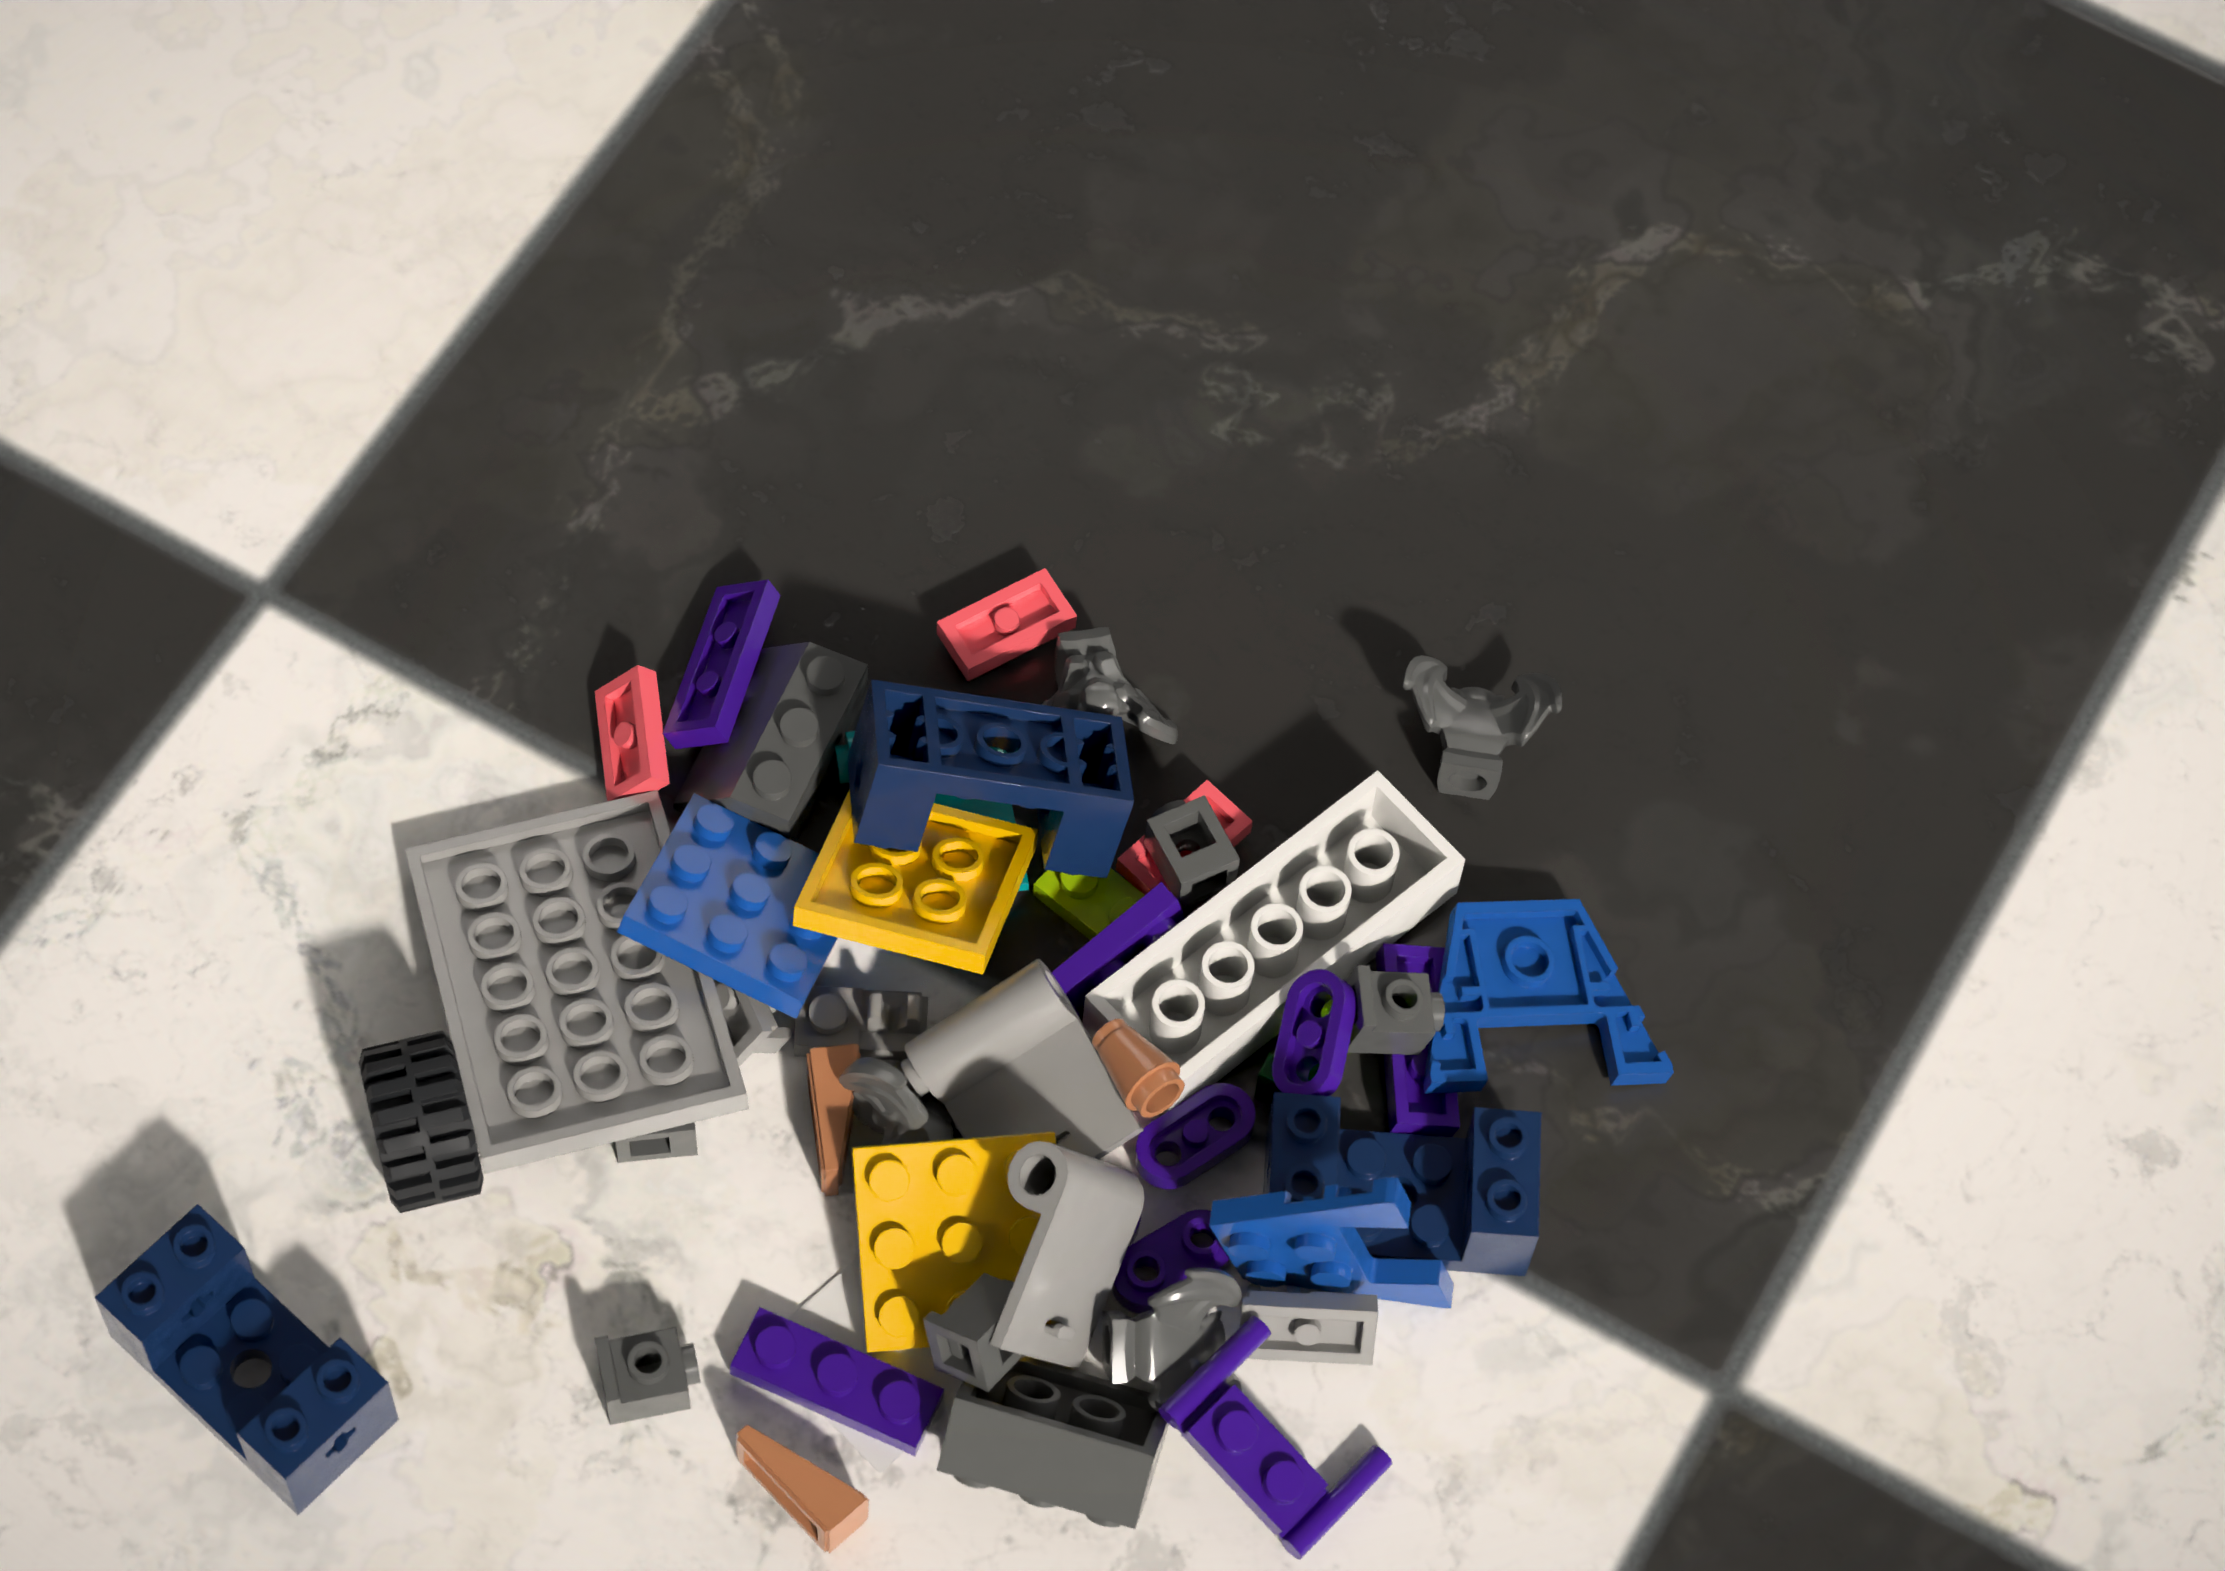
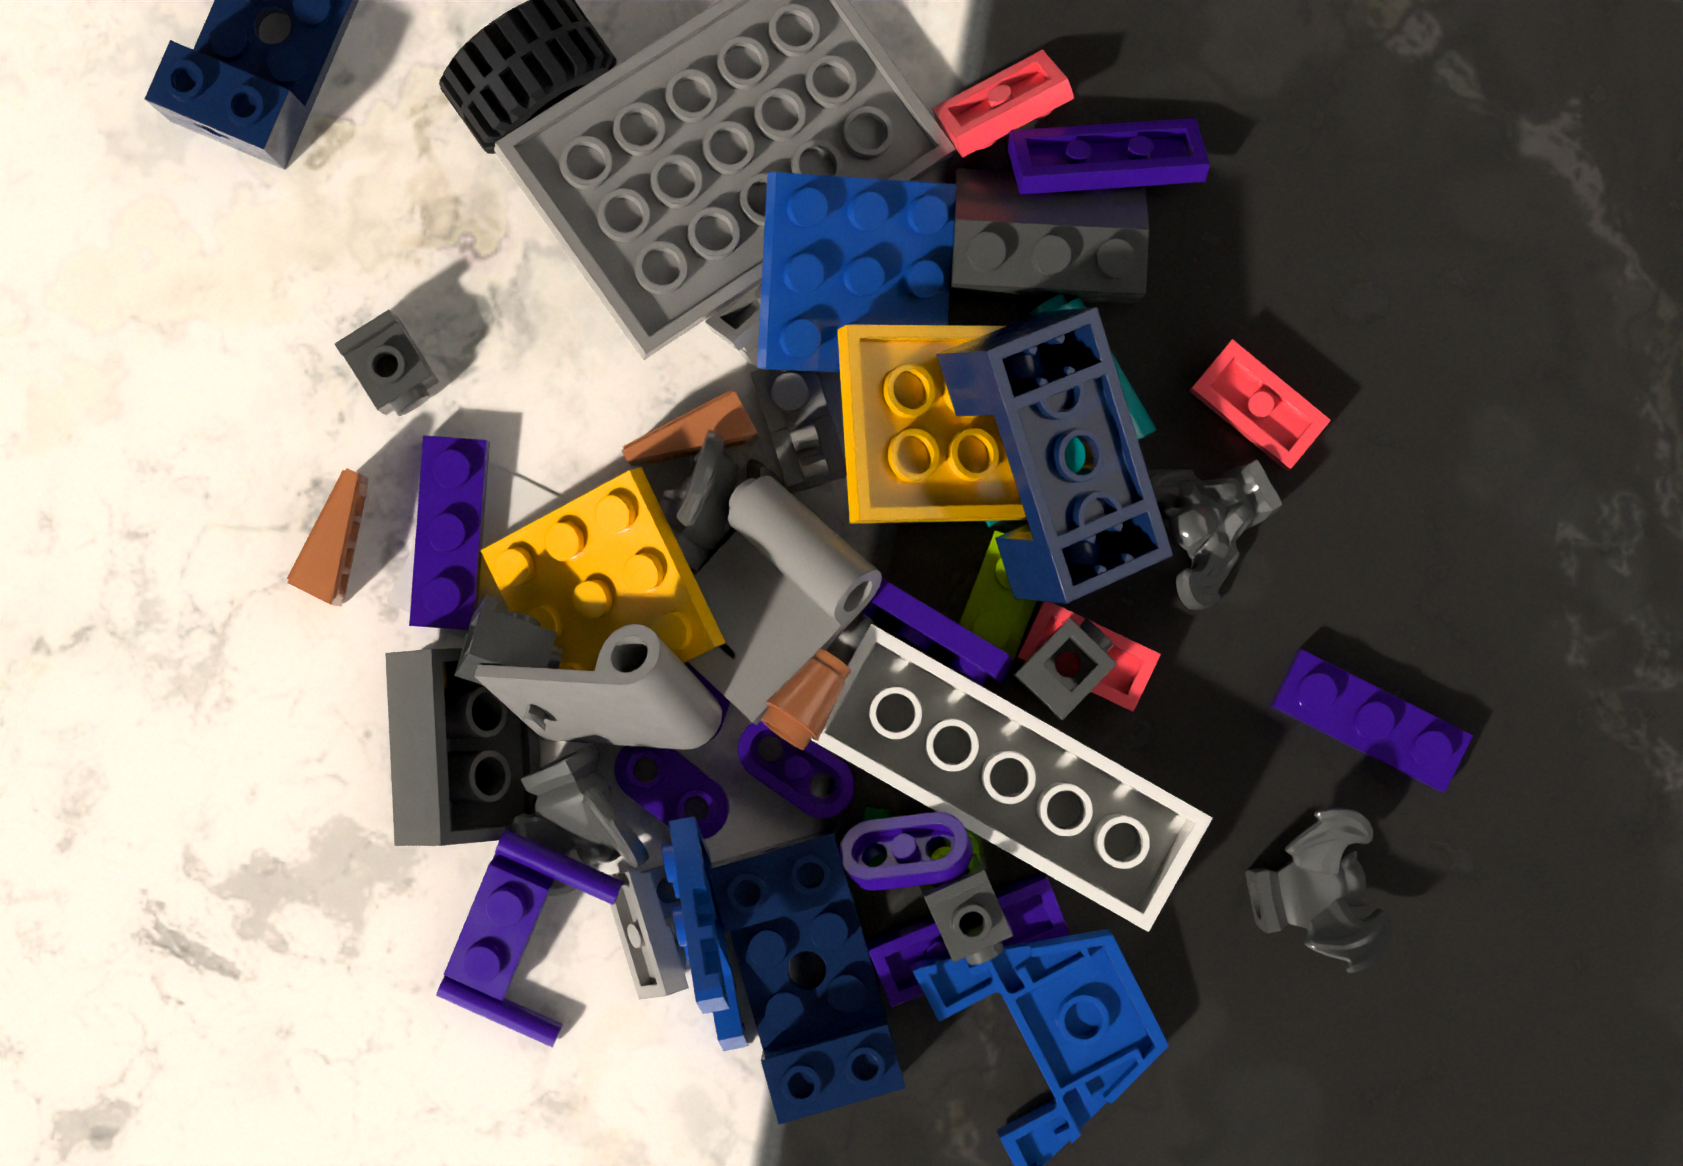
camera: 75 degrees right, 25 degrees up
(1334, 638) = (1371, 720): none -> dark purple plate

